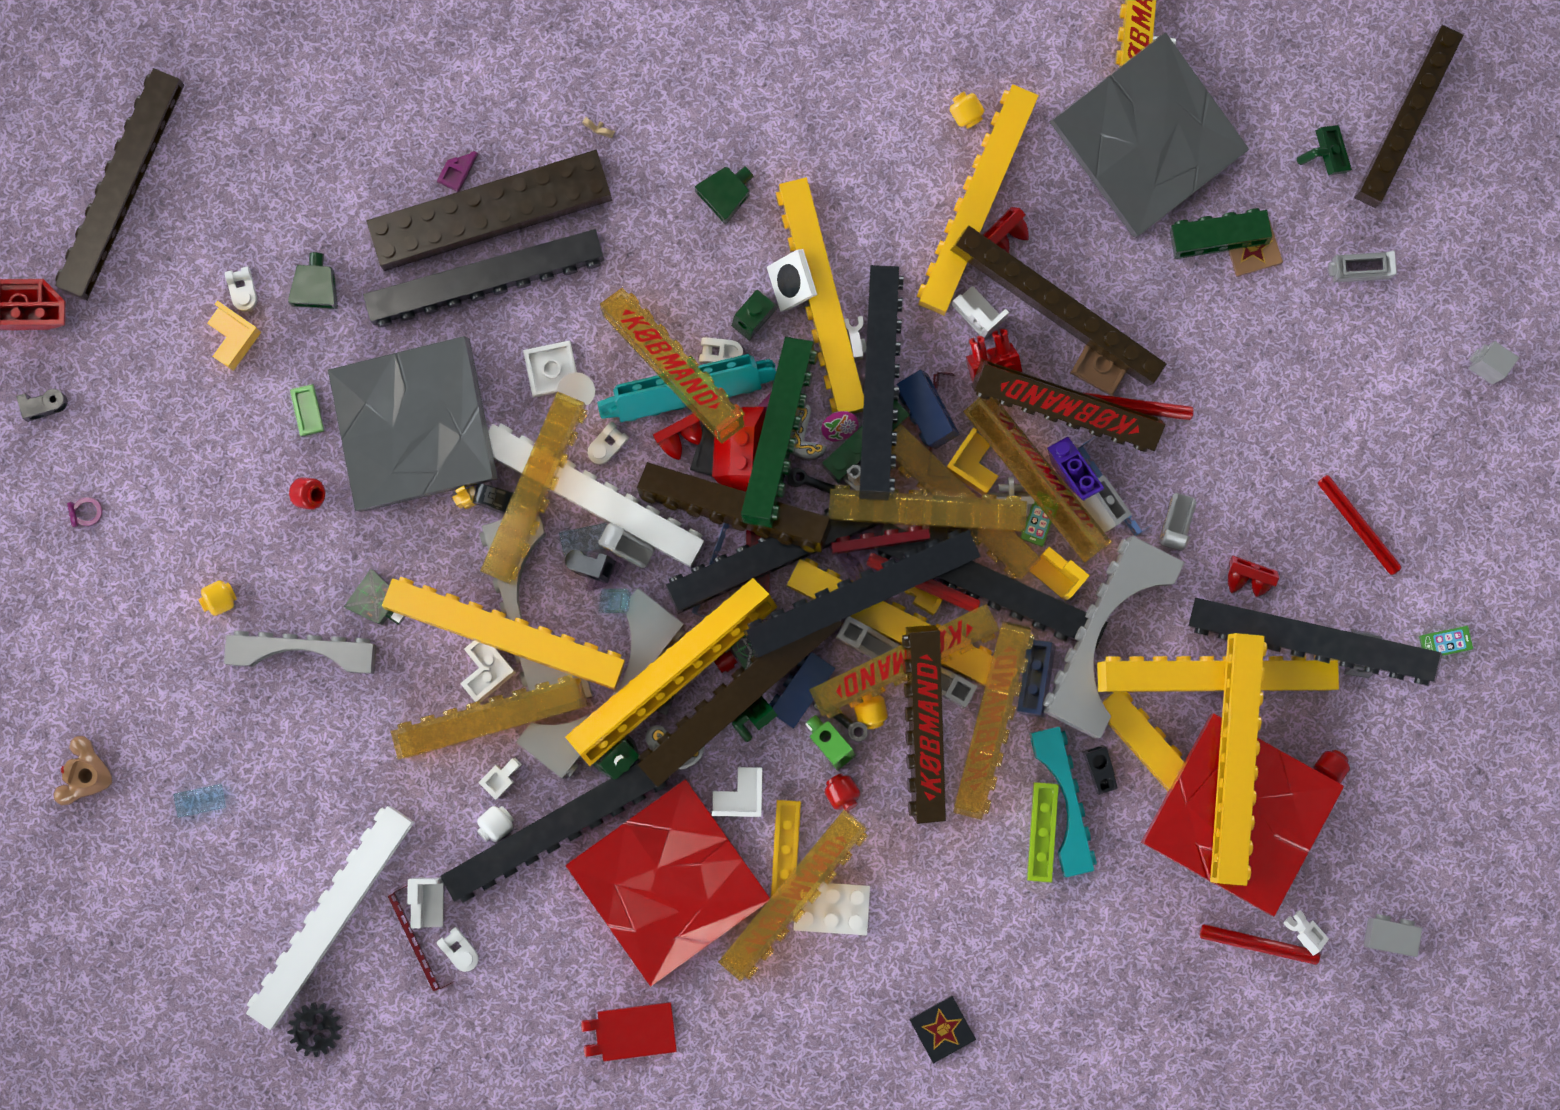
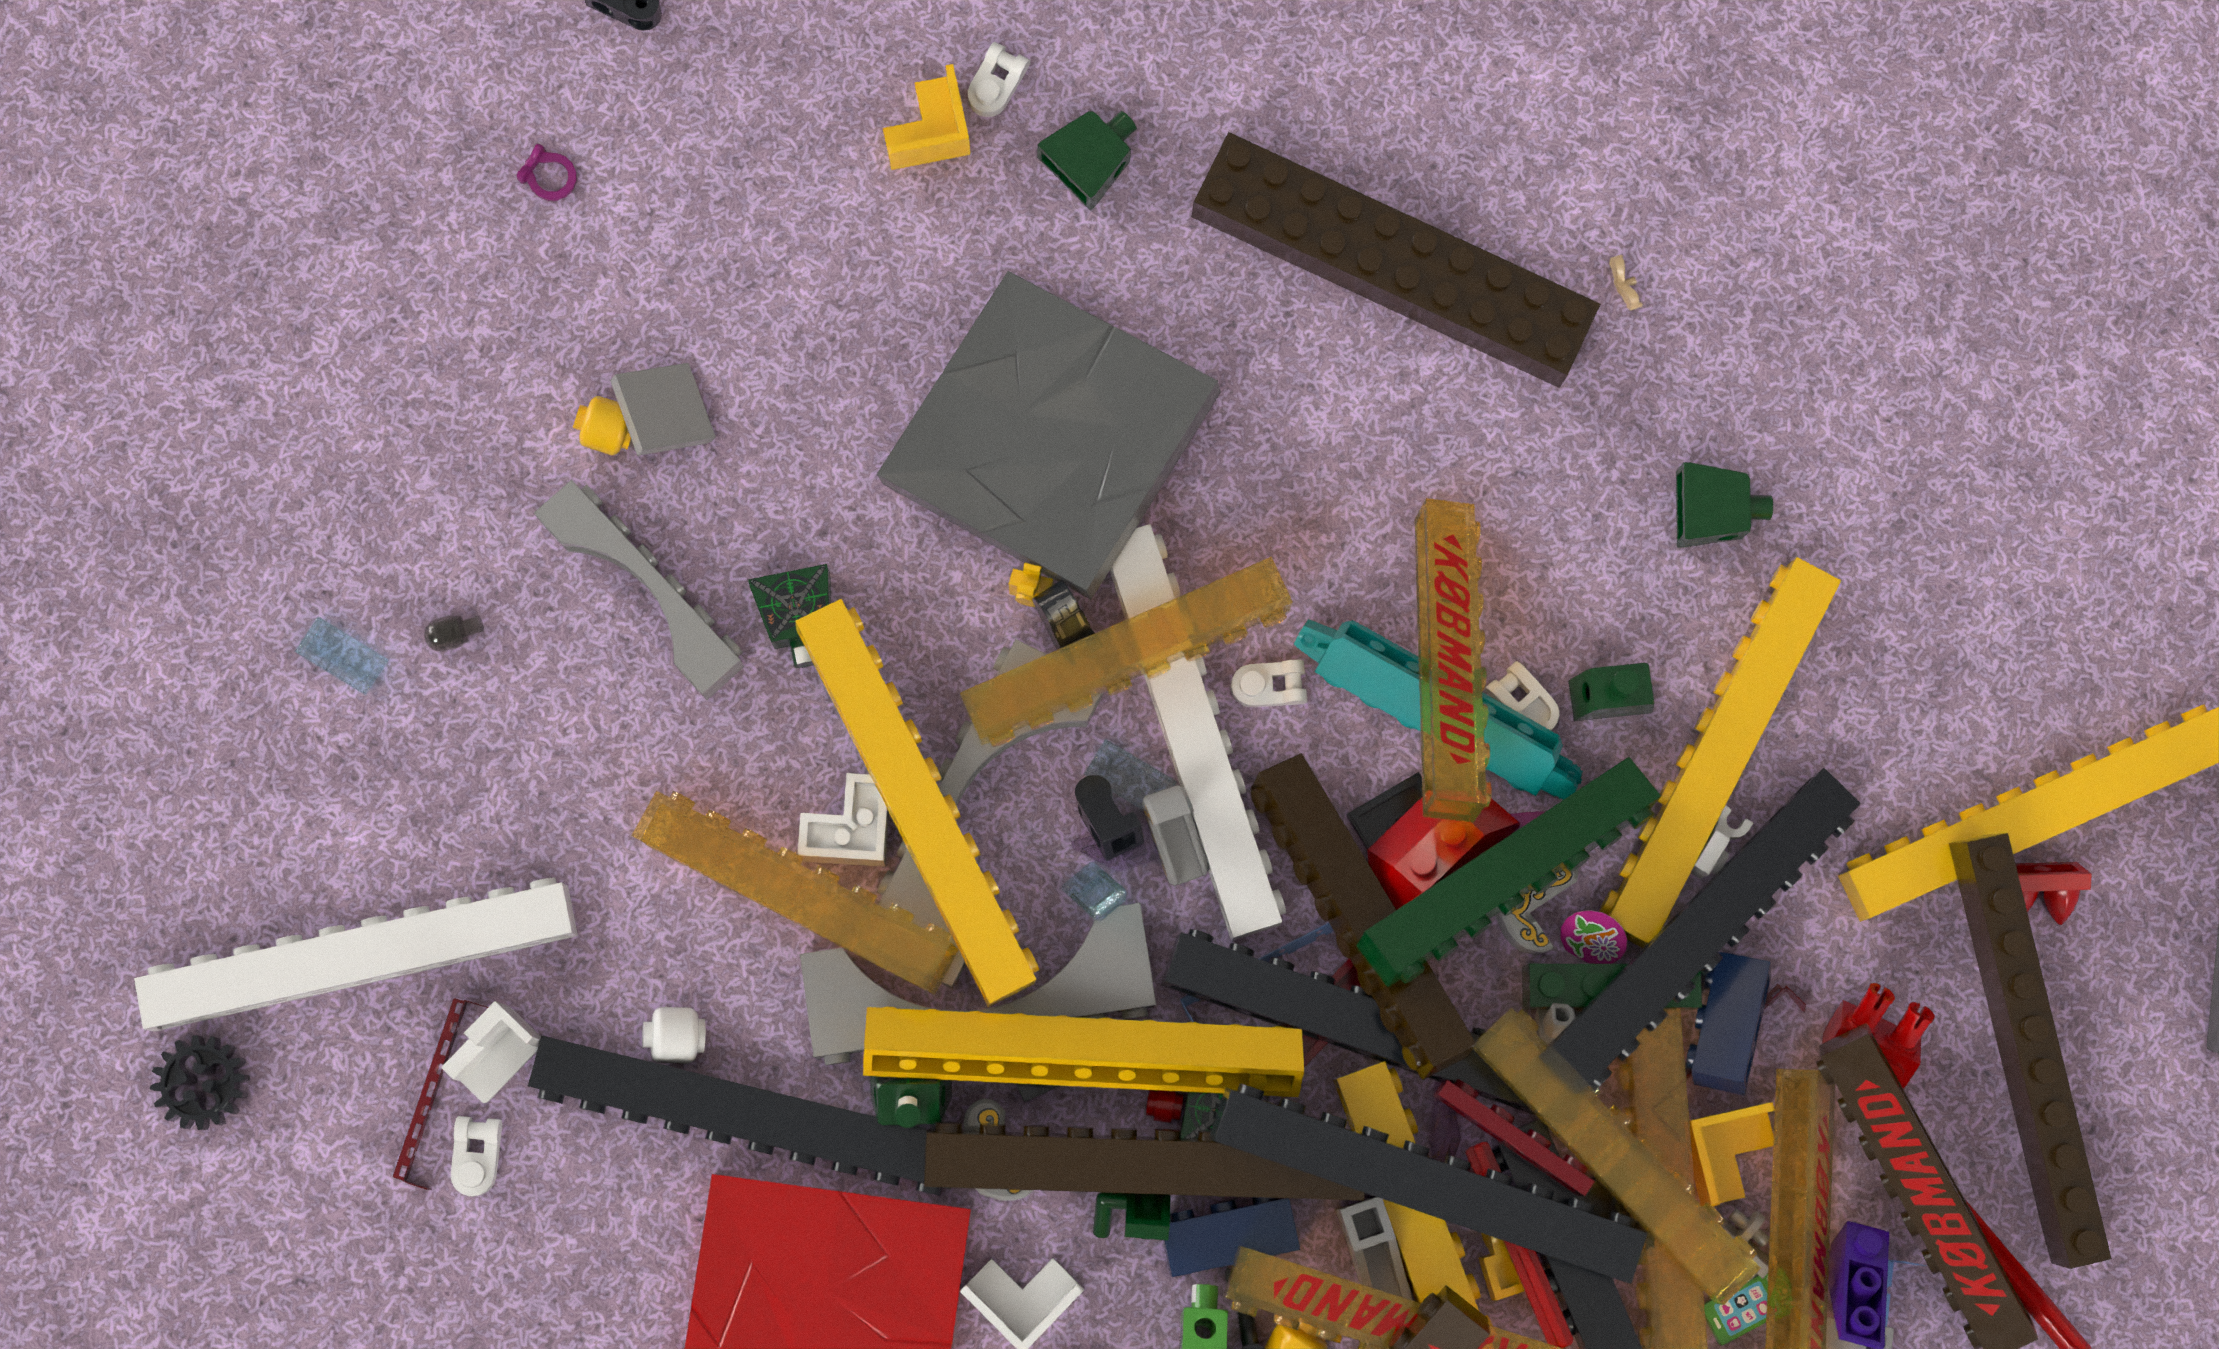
camera: 40 degrees right, 5 degrees down
(83, 775) = (232, 490): medium nougat head -> none
(235, 567) = (662, 409): none -> light grey tile
(236, 747) = (448, 632): none -> clear smoke cylinder
(307, 410) = (935, 299): bright green tile -> none
(307, 493) = (838, 398): red head -> none
(456, 171) = (1396, 176): magenta tile -> none
(484, 277) = (1309, 336): black brick -> none
(498, 779) = (731, 982): white plate -> none
(547, 366) = (1288, 525): white tile -> none
(577, 386) = (1302, 577): white sticker -> none
(669, 439) = (1356, 750): red tile -> none
(791, 280) = (1702, 694): white tile -> none
(807, 480) = (1487, 969): black brick -> none
(966, 109) = (2129, 684): yellow head -> none
(978, 312) = (1911, 958): white panel -> none
(1098, 371) = (2002, 1182): medium nougat tile -> none

